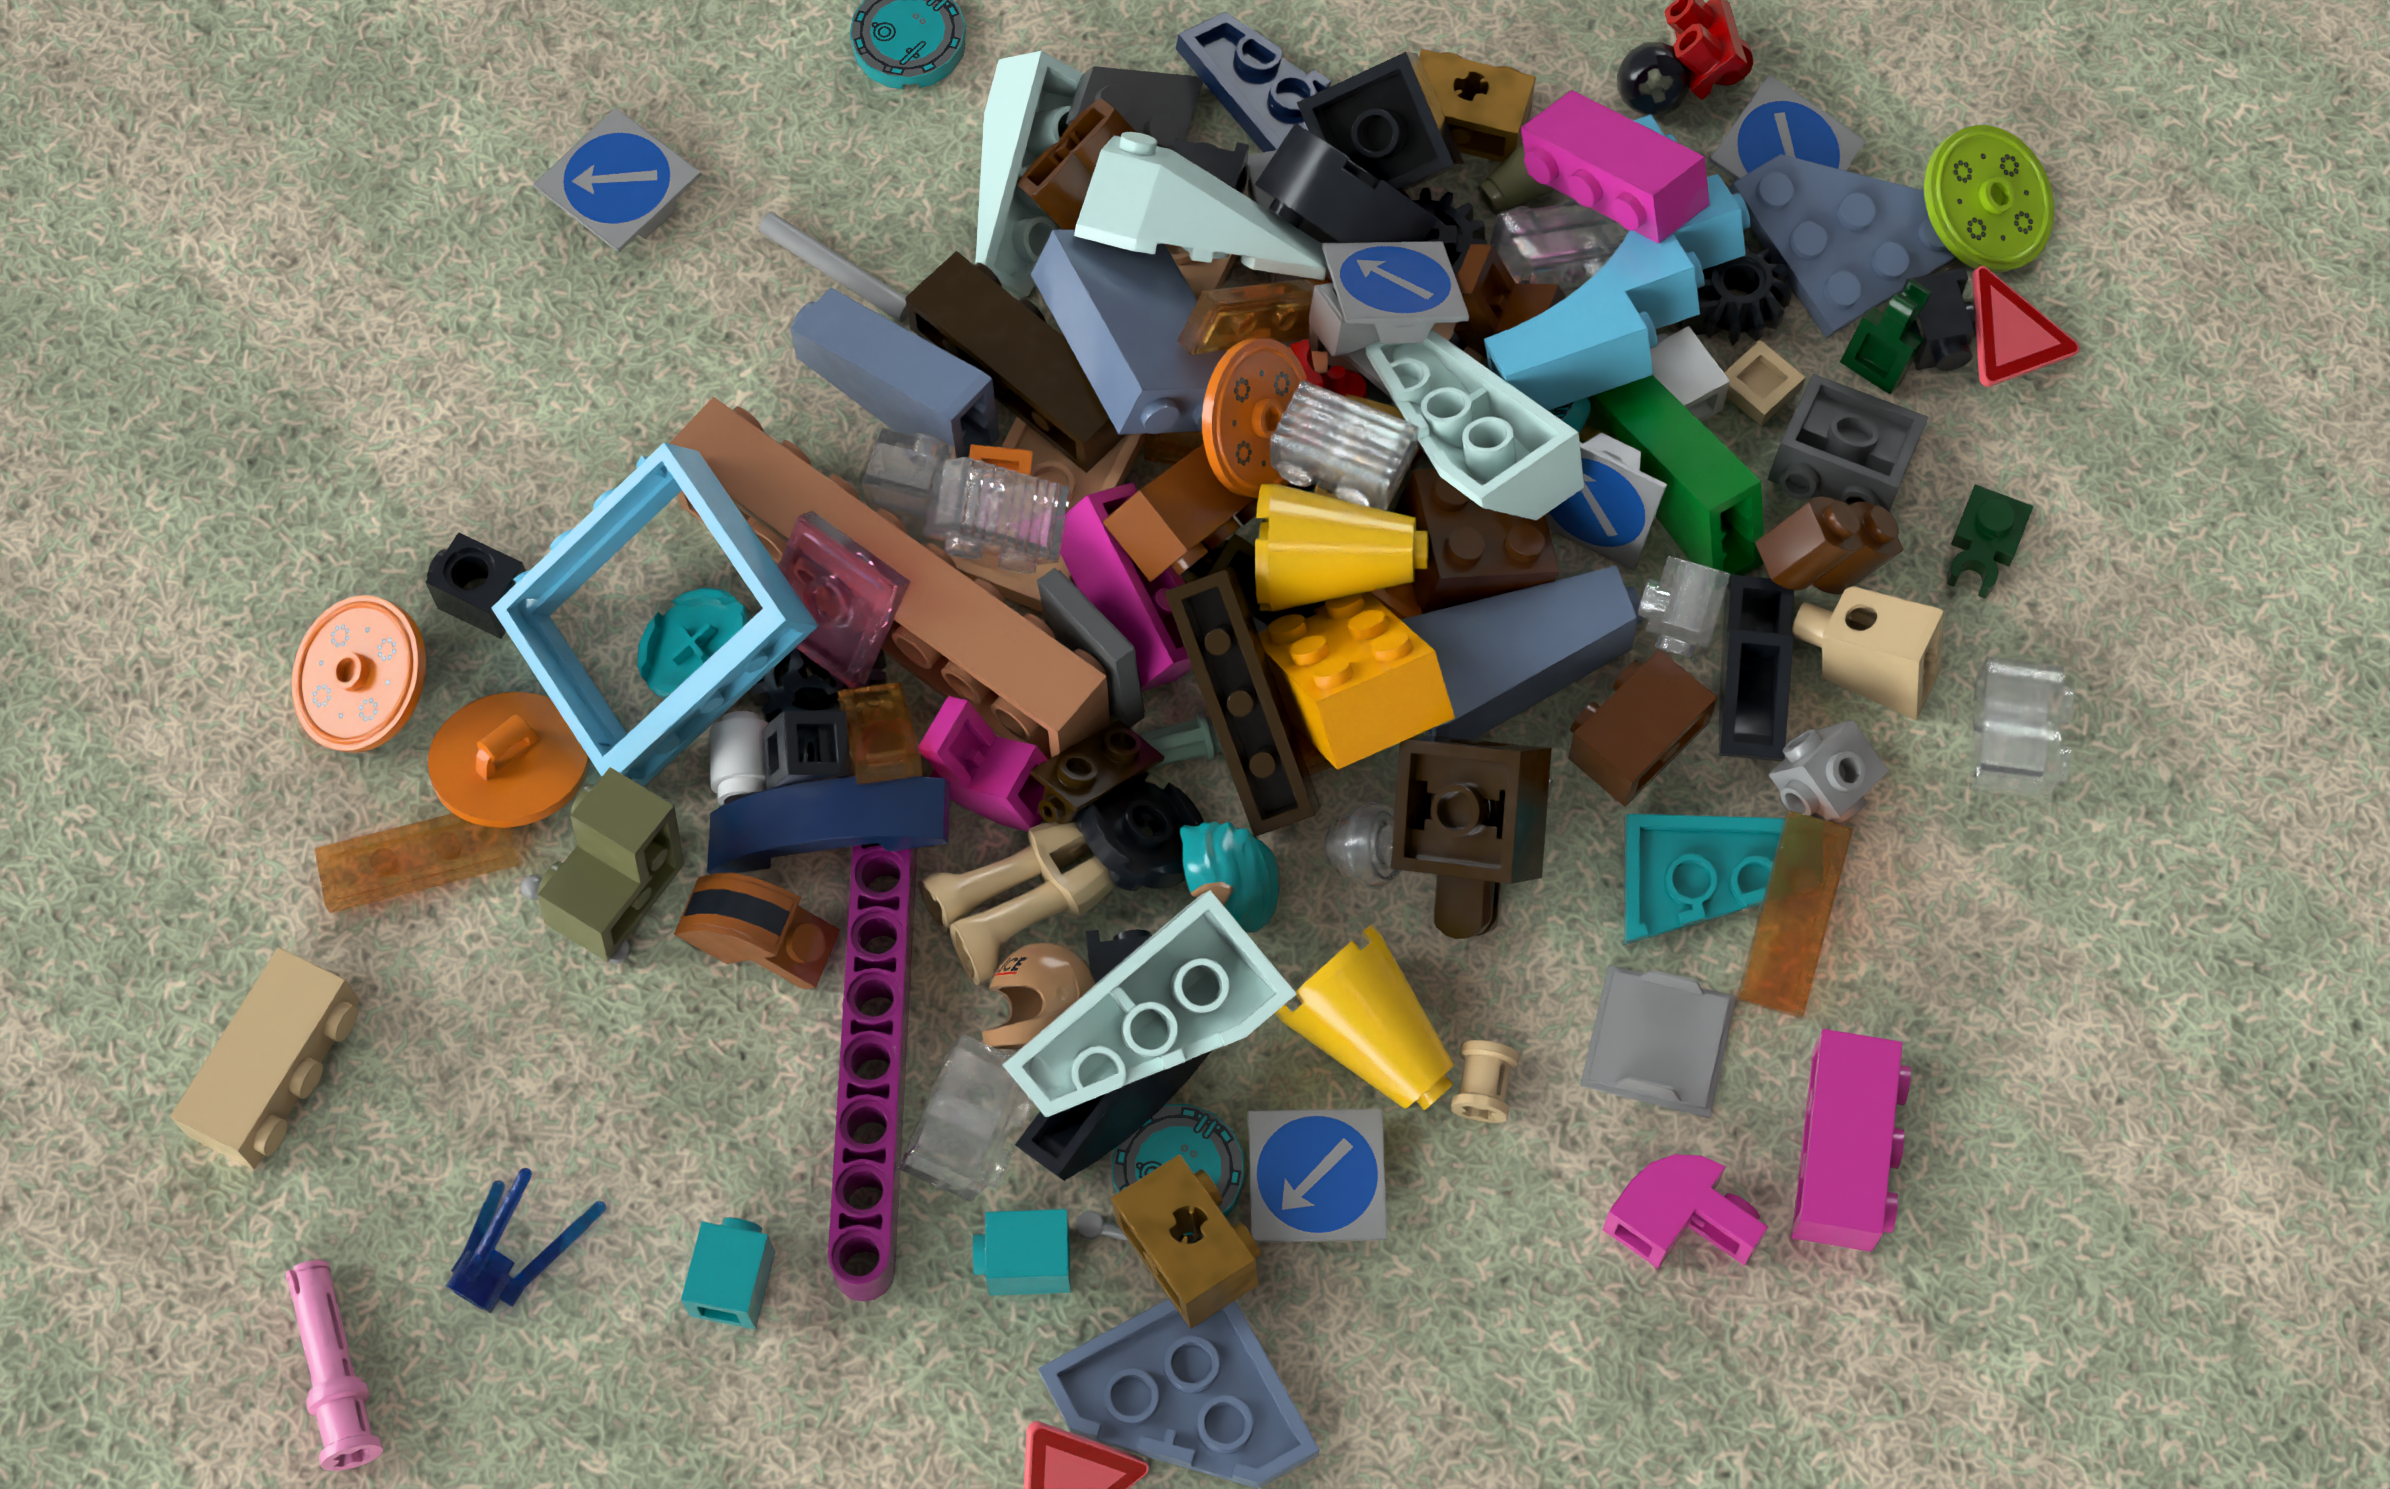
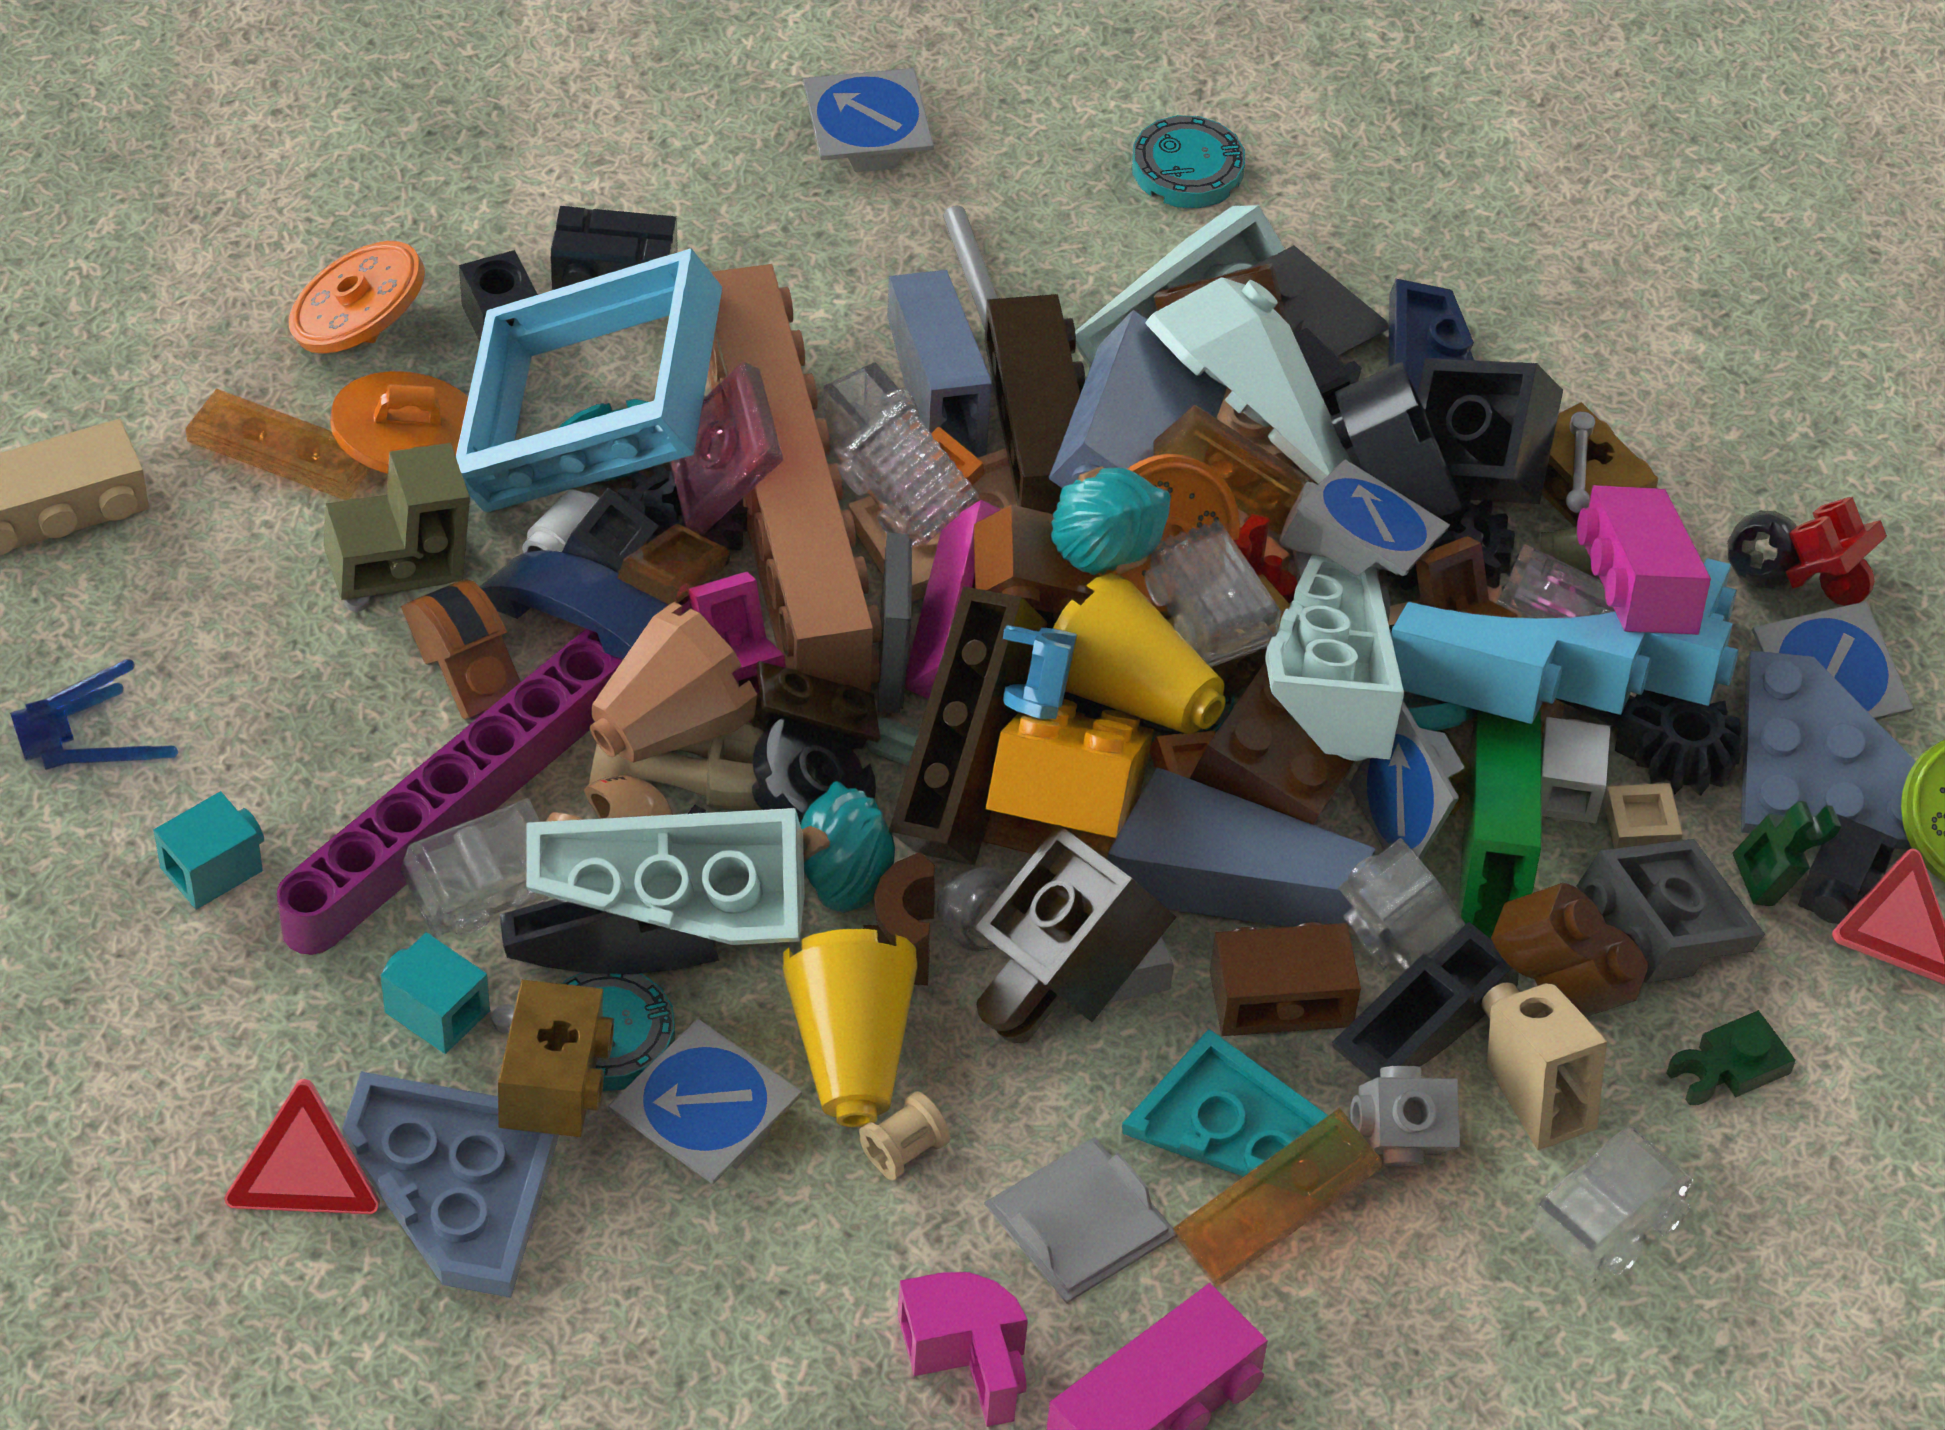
camera: 35 degrees right, 15 degrees down
(532, 469) = (606, 241): none -> black brick
(995, 853) = (671, 690): none -> nougat cone
(1227, 447) = (1109, 520): none -> teal hair
(1297, 624) = (1047, 673): none -> dark azure piece
(1339, 917) = (903, 899): none -> reddish brown piece
(1443, 72) = (1582, 427): none -> light grey hinge

